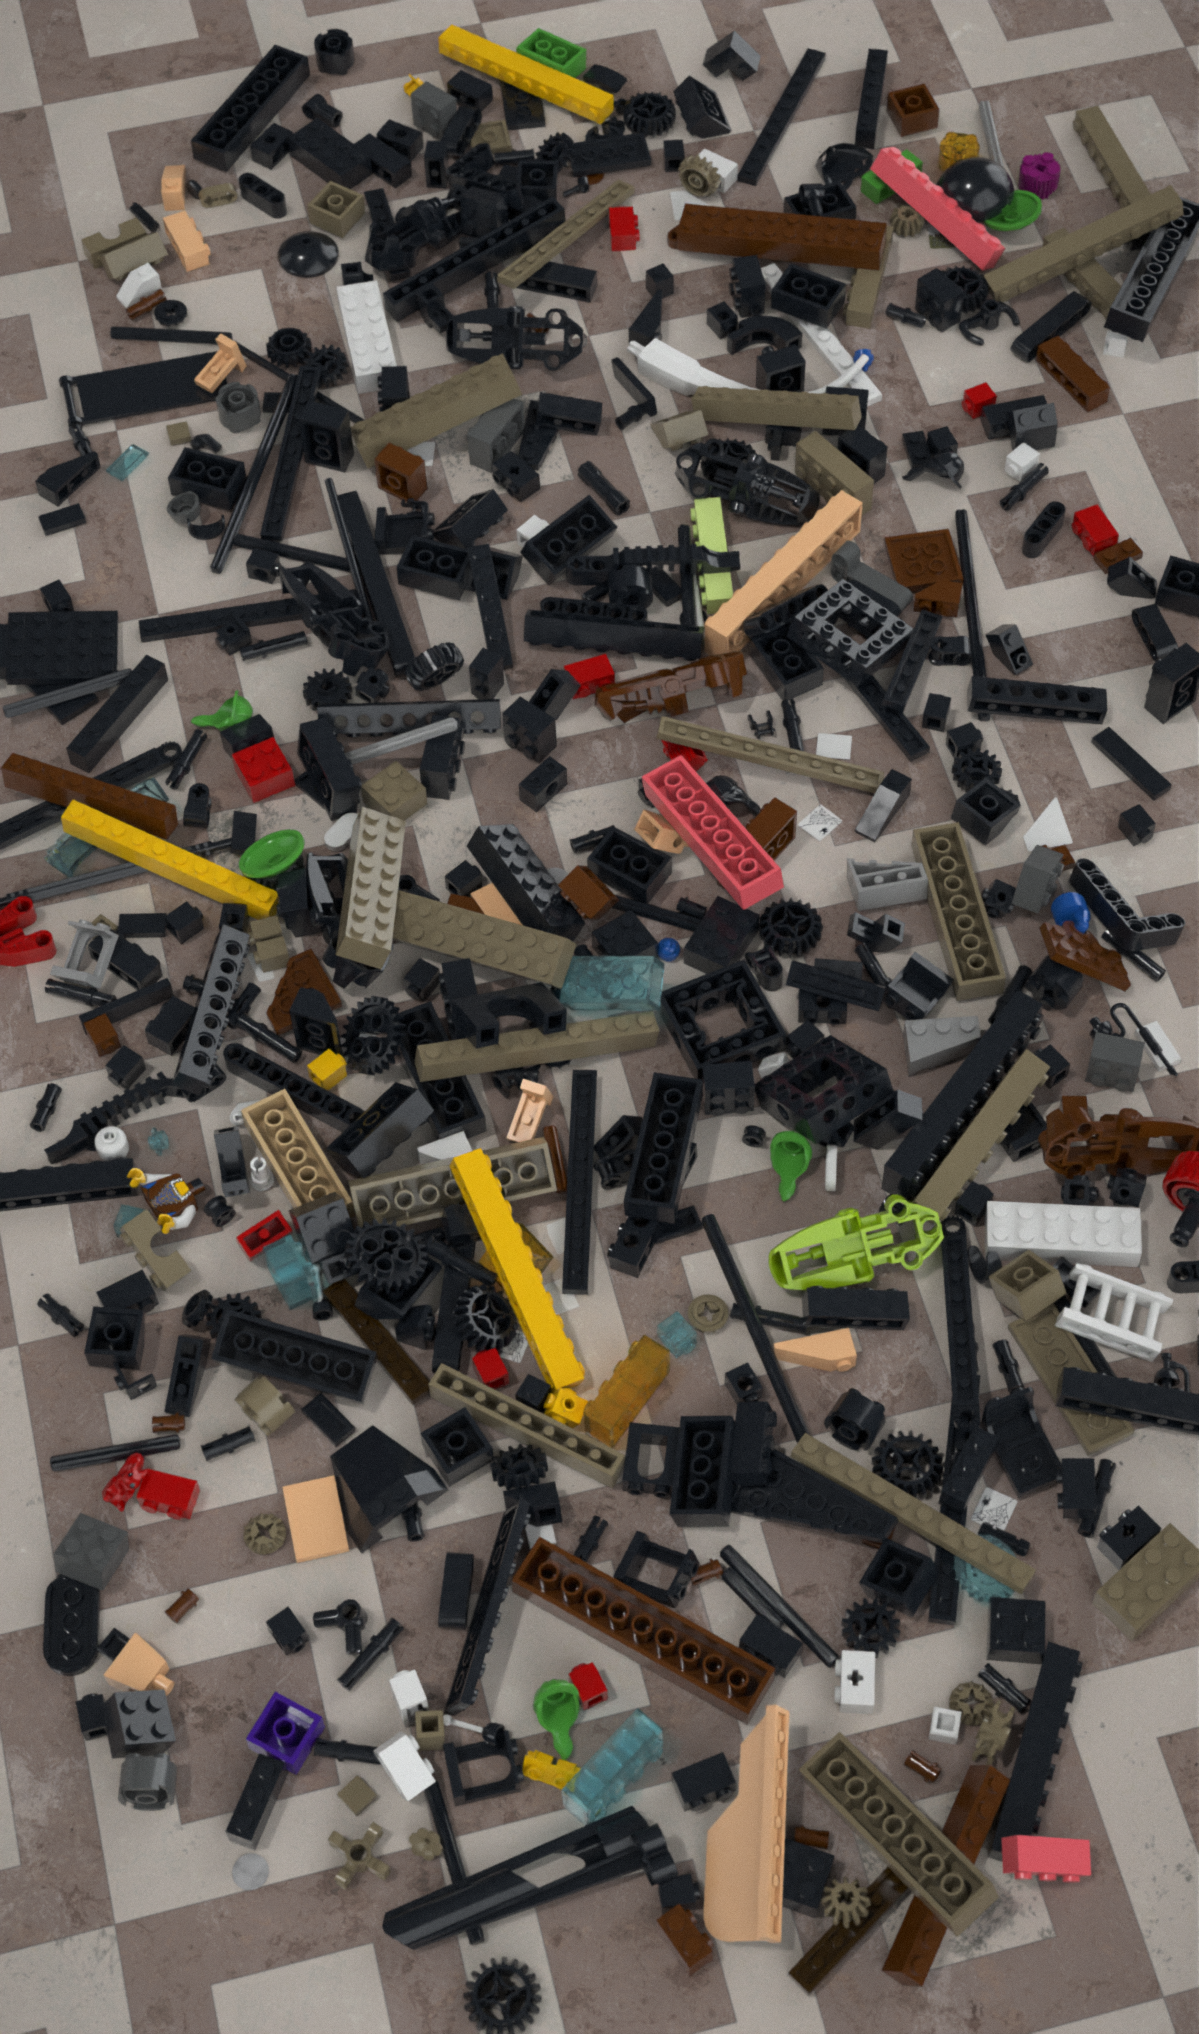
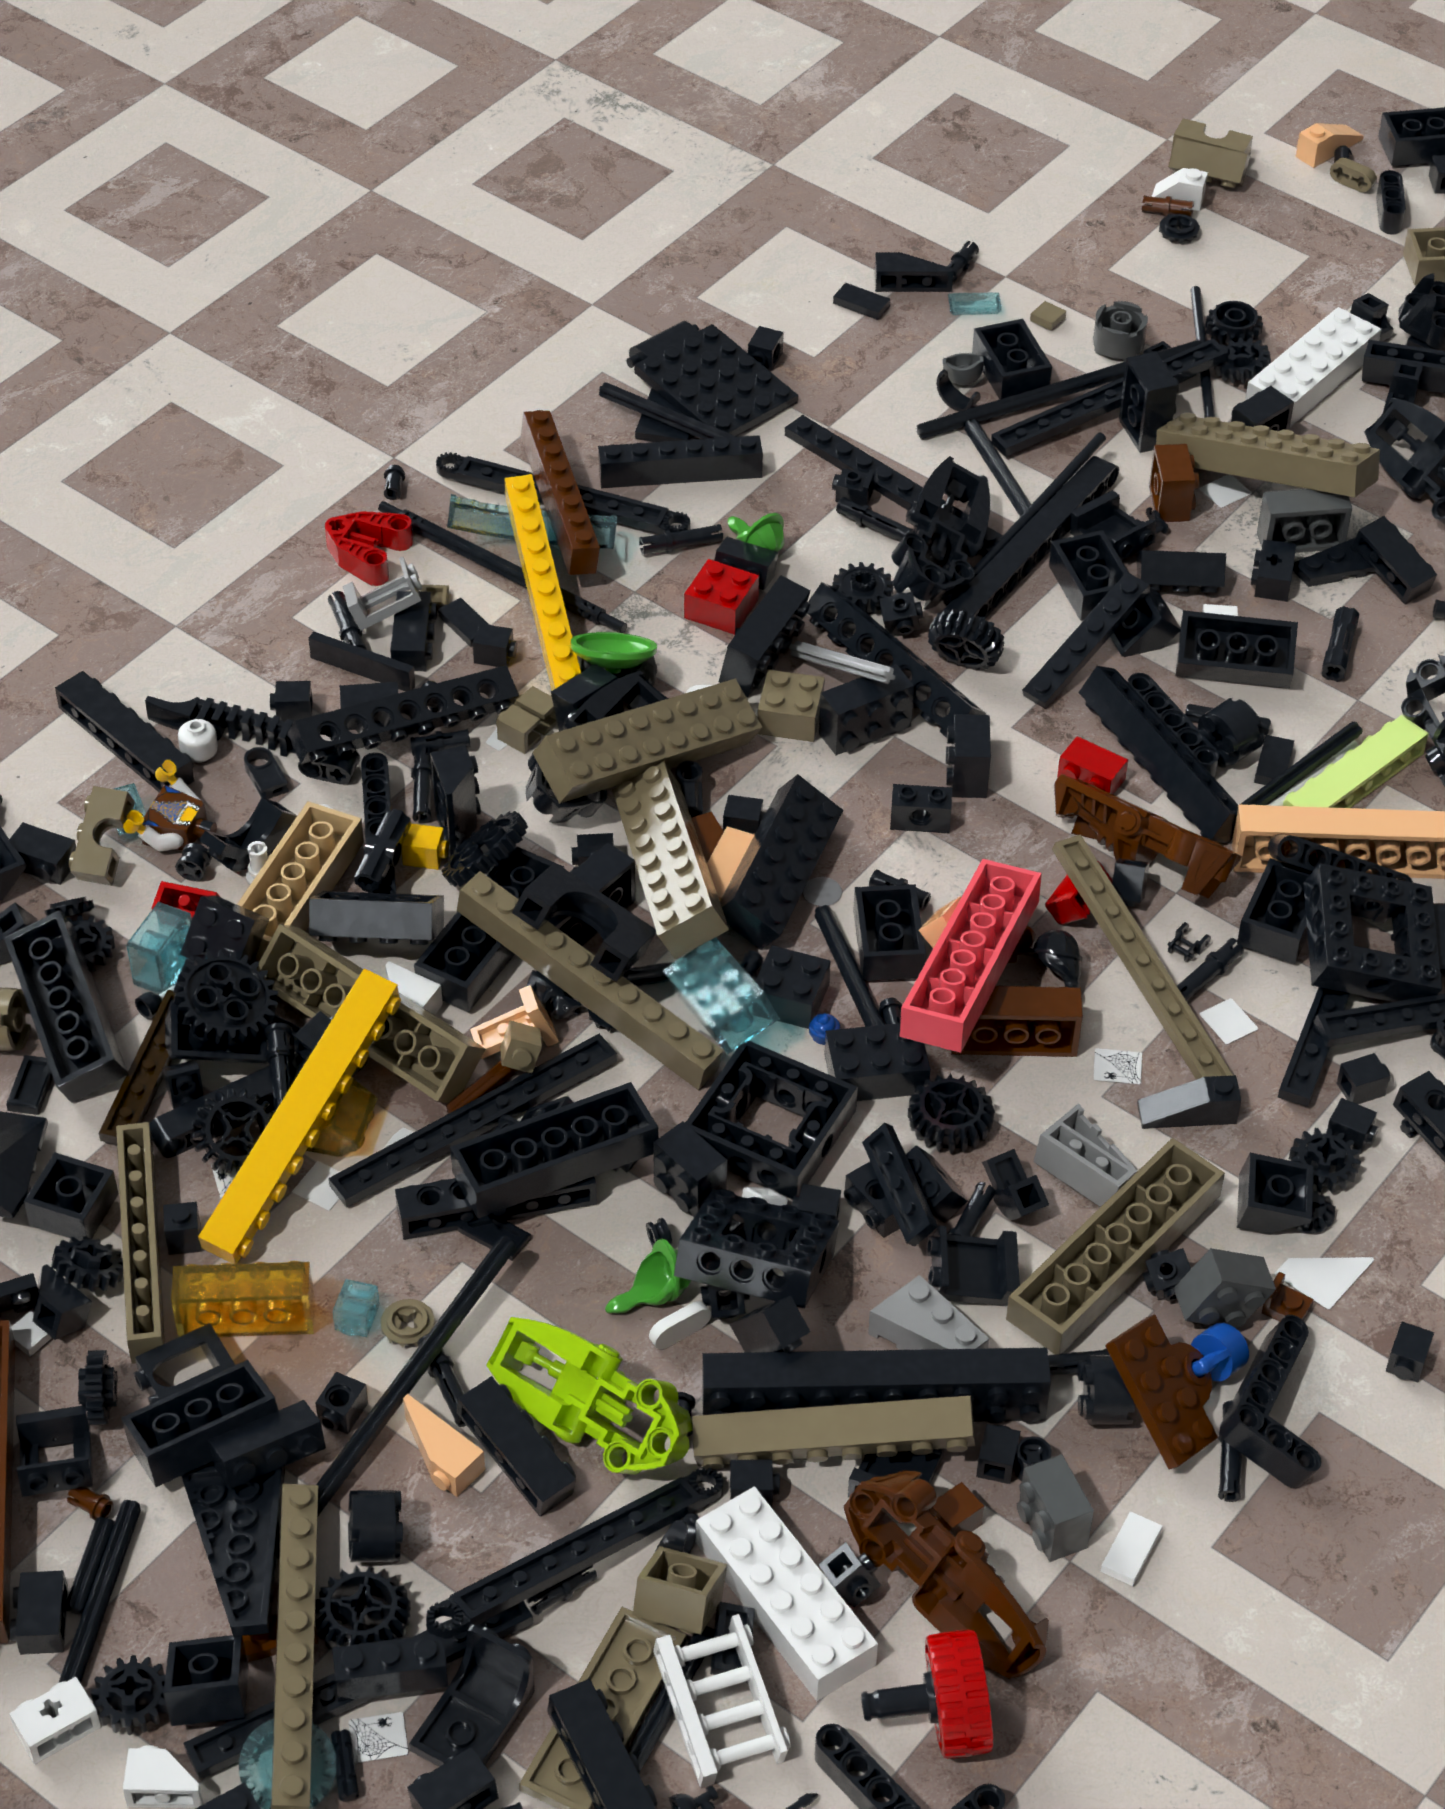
camera: 50 degrees right, 10 degrees down
(45, 1107) = (201, 674): black pin -> none
(102, 1035) = (314, 663): reddish brown brick -> none
(138, 389) = (1072, 262): black flag -> none
(144, 217) = (1267, 146): black axle -> none
(158, 1141) = (233, 772): clear light blue plate -> none
(166, 335) = (1154, 244): black axle -> none
(178, 1125) = (268, 777): none -> black piece
(186, 240) = (1273, 186): light nougat brick -> none
(197, 807) = (630, 580): black piece -> none
(205, 440) = (1059, 337): black arm -> none
(221, 364) = (1154, 289): light nougat bracket -> none
(235, 914) = (530, 673): black brick -> none
(243, 831) = (644, 623): black tile -> none
(263, 566) = (961, 451): black brick -> none
(305, 972) = (503, 777): reddish brown plate -> none
(308, 254) = (1365, 272): black dish -> none
(325, 1093) = (382, 850): none -> black piece
(486, 674) = (1000, 685): black brick -> none
(490, 1369) = (185, 1176): red brick -> none
(554, 1117) = (520, 1046): none -> dark tan brick
(555, 692) = (1032, 748): black brick -> none
(565, 1407) = (183, 1247): yellow brick -> none
(587, 892) = (814, 912): reddish brown brick -> none
(589, 1541) = (46, 1378): black pin -> none
(596, 569) = (1216, 684): black piece -> none
(630, 1514) = (98, 1387): none -> black gear
(698, 714) = (1130, 880): none -> black brick
(766, 968) = (879, 1112): black piece -> none
(942, 1646) = (158, 1780): none -> white slope
(1007, 1365) = (570, 1641): black pin -> none
(1070, 1049) = (1029, 1452): none -> black wheel
(1106, 1028) = (1096, 1479): black piece -> none
(1126, 1186) = (903, 1620): black brick -> none

